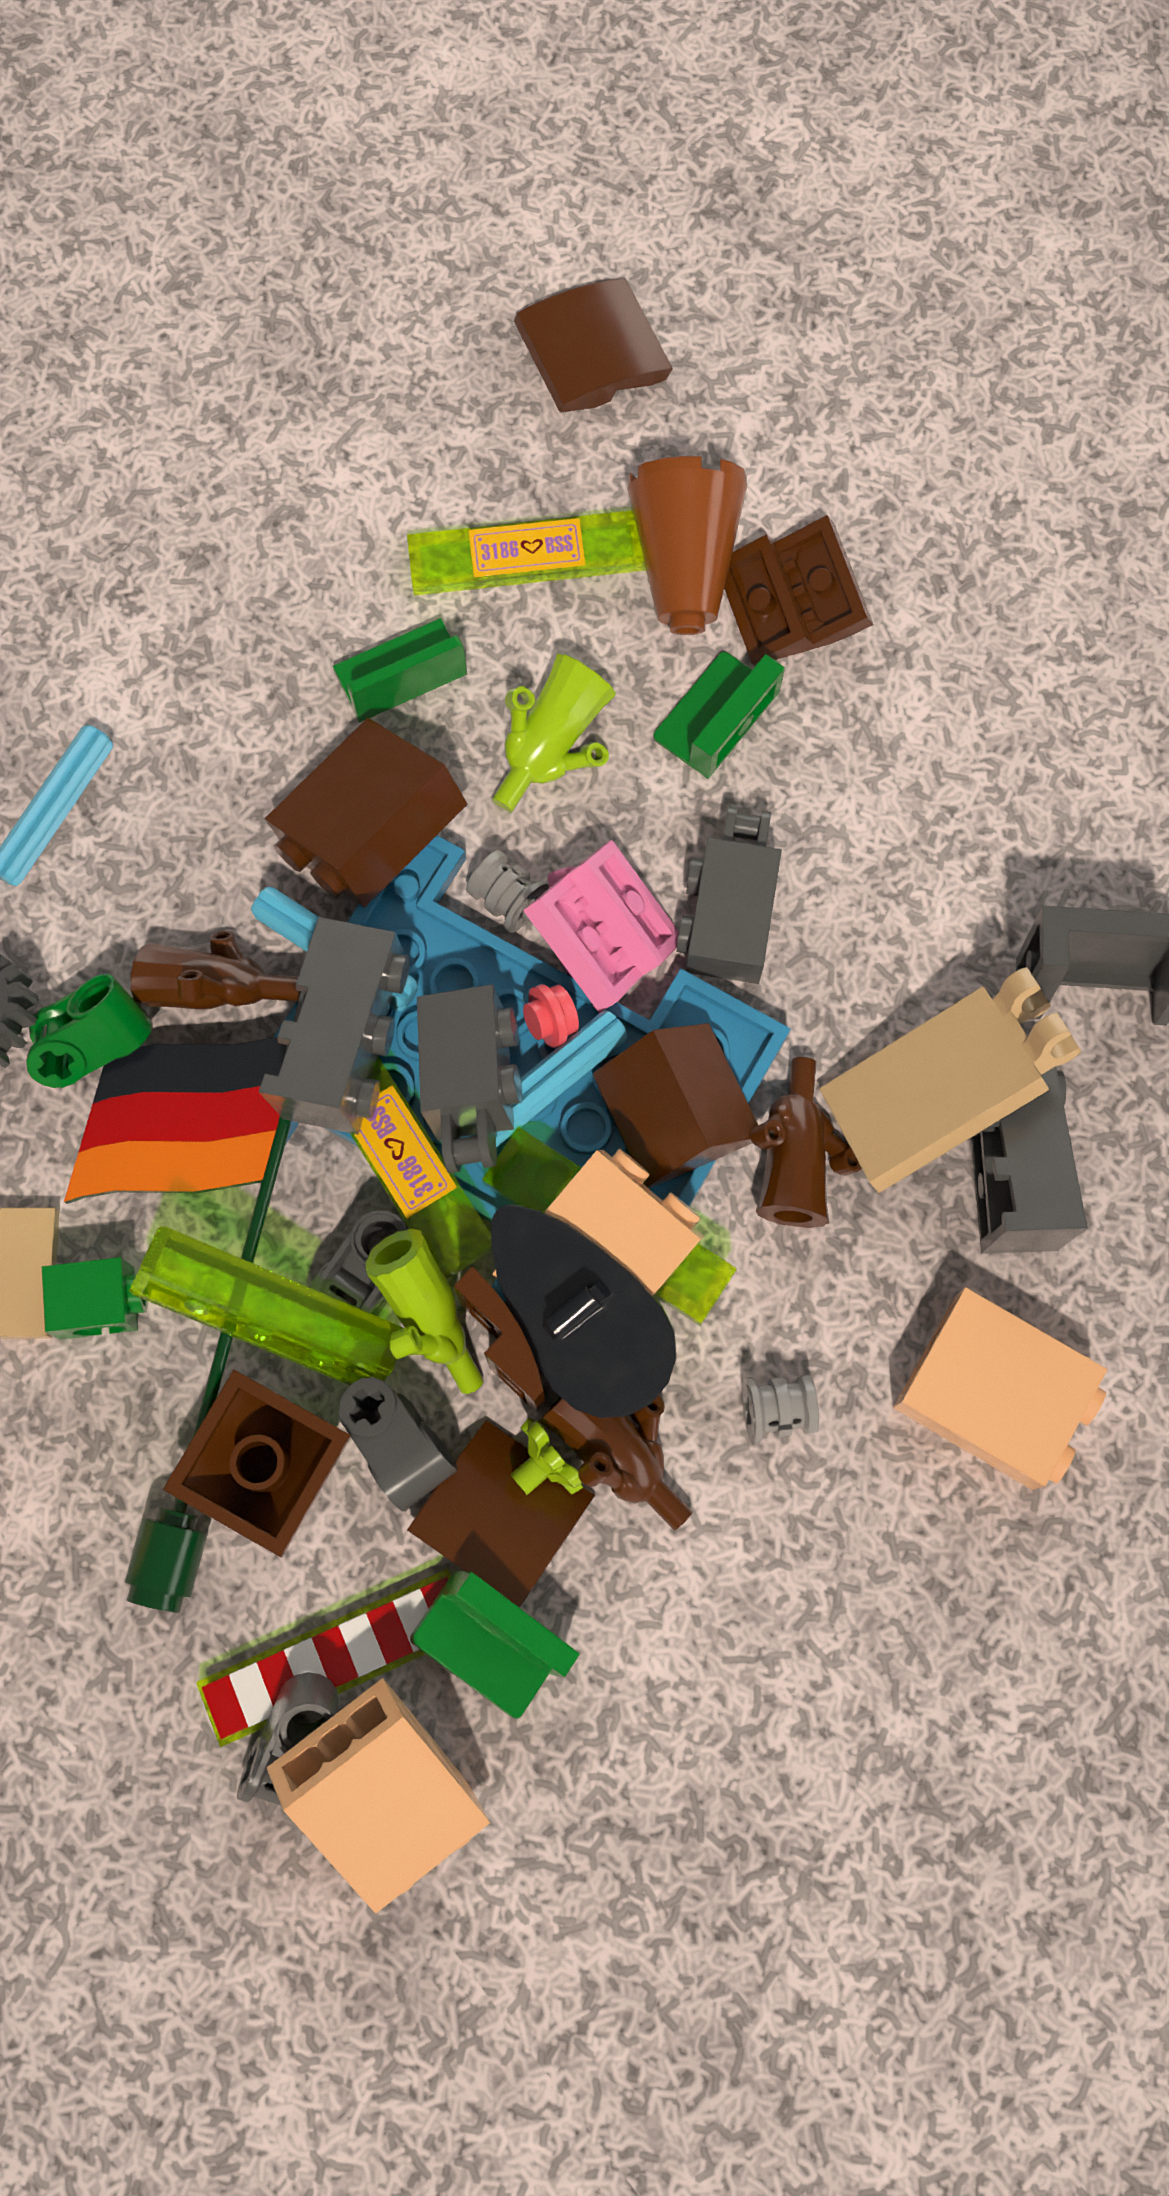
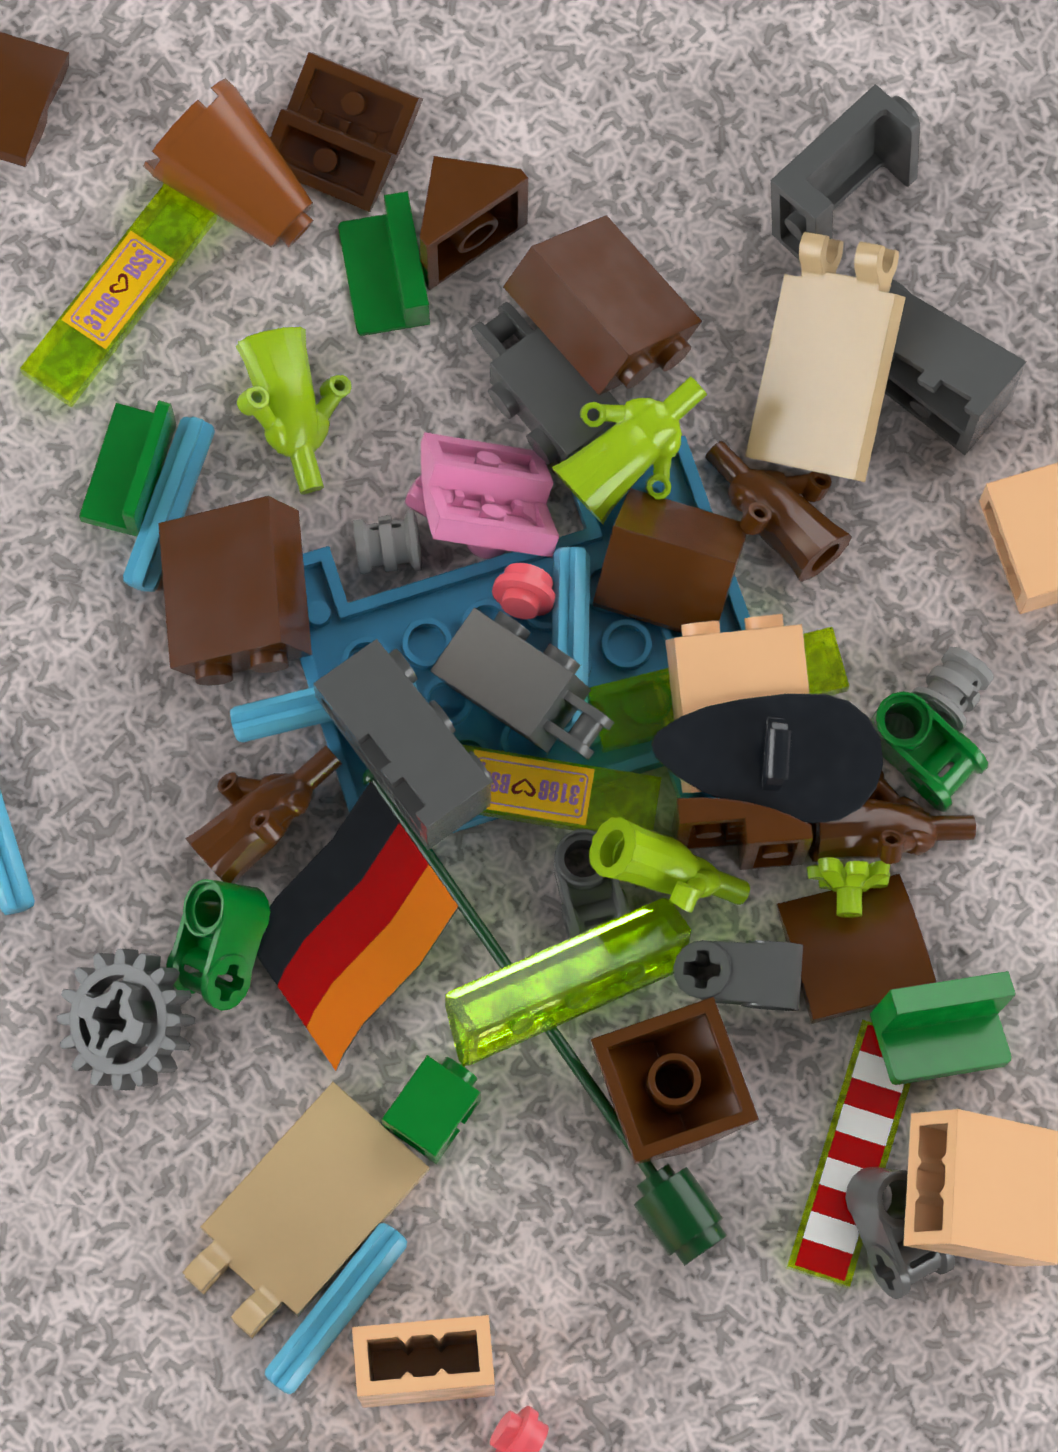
camera: 50 degrees left, 0 degrees up
(410, 712) = (168, 500): none -> medium azure axle
(710, 1432) = (928, 751): none -> green piece
(712, 990) = (643, 436): none -> lime piece
(803, 721) = (468, 213): none -> reddish brown slope
(831, 878) = (603, 305): none -> reddish brown brick

